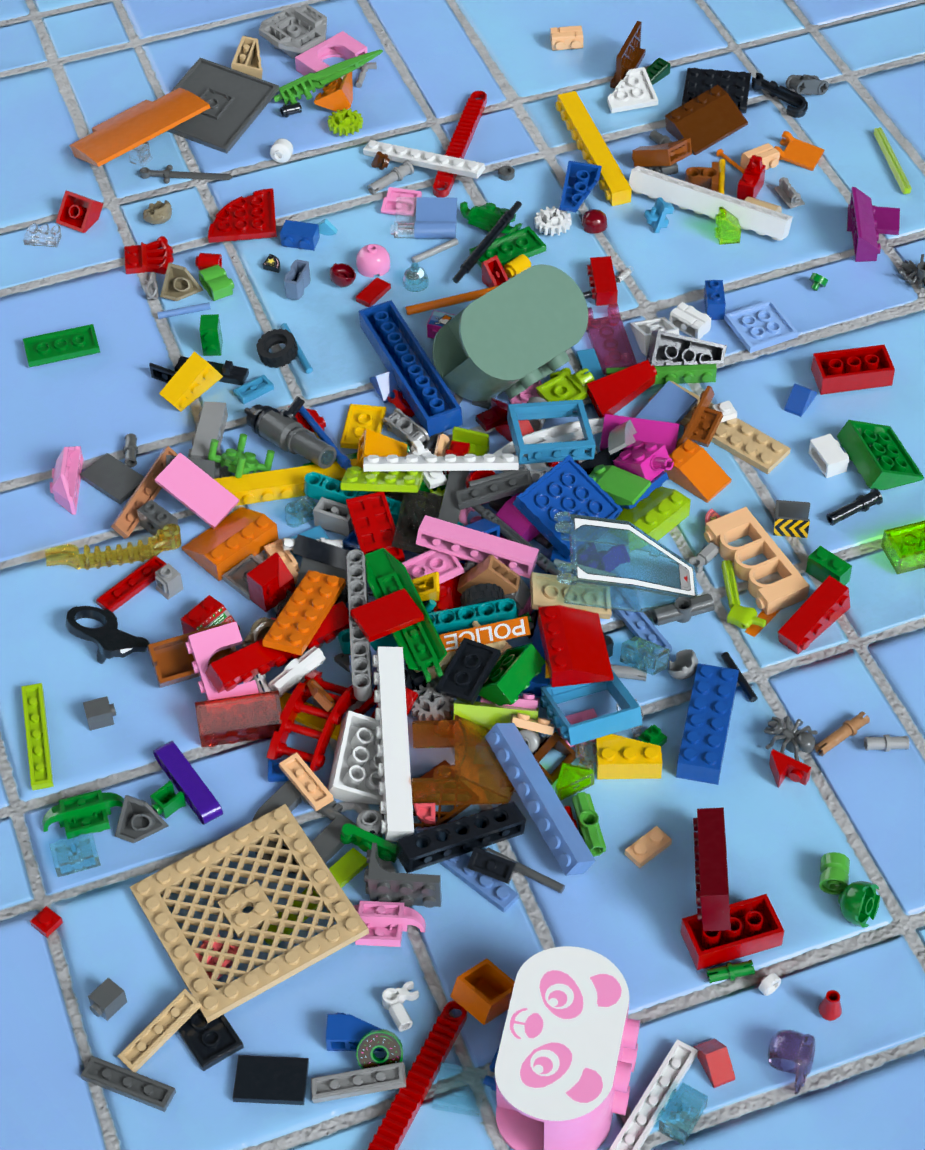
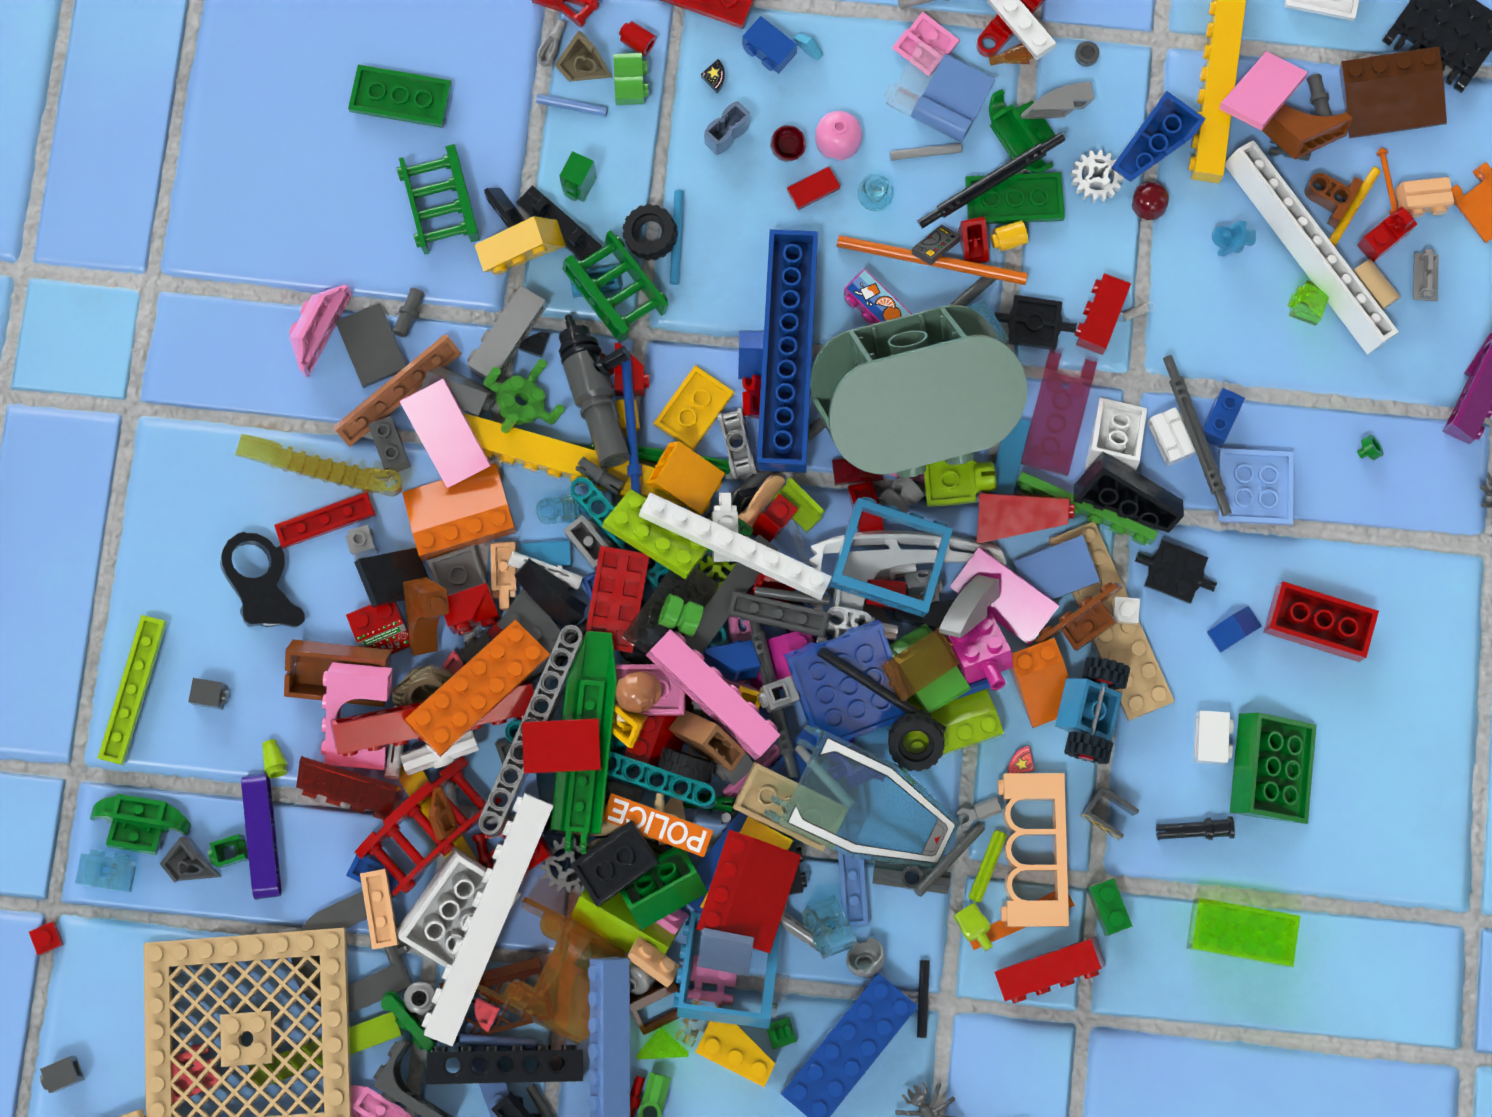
camera: 25 degrees right, 30 degrees up
(126, 371) = (461, 205): none -> green fence
(172, 732) = (273, 759): none -> lime cone
(204, 584) = (386, 572): none -> black tile
(231, 435) = (535, 344): none -> black tile
(236, 587) = (424, 606): none -> dark orange arch
(265, 391) = (604, 306): none -> green fence
(333, 472) = (600, 476): none -> dark grey pin
(421, 506) = (682, 615): none -> bright green wheel
(422, 562) = (637, 692): none -> nougat helmet
(464, 185) = (1014, 55): none -> clear orange cone
(472, 285) = (936, 244): none -> dark grey tile
(505, 193) = (1061, 102): none -> light grey slope
(520, 533) = (767, 698): none -> light grey window
(581, 680) = (725, 951): none -> sand blue tile
(609, 475) = (920, 664): none -> clear orange piece
(627, 144) = (1263, 90): none -> bright pink tile
(629, 505) = (870, 683): none -> black bar
(641, 503) = (916, 722): none -> black tyre
(702, 584) = (951, 857): none -> dark grey bar
(706, 308) = (1197, 435): none -> dark grey axle
(739, 465) = (1091, 709): none -> brick
(742, 385) = (1175, 571): none -> black plate

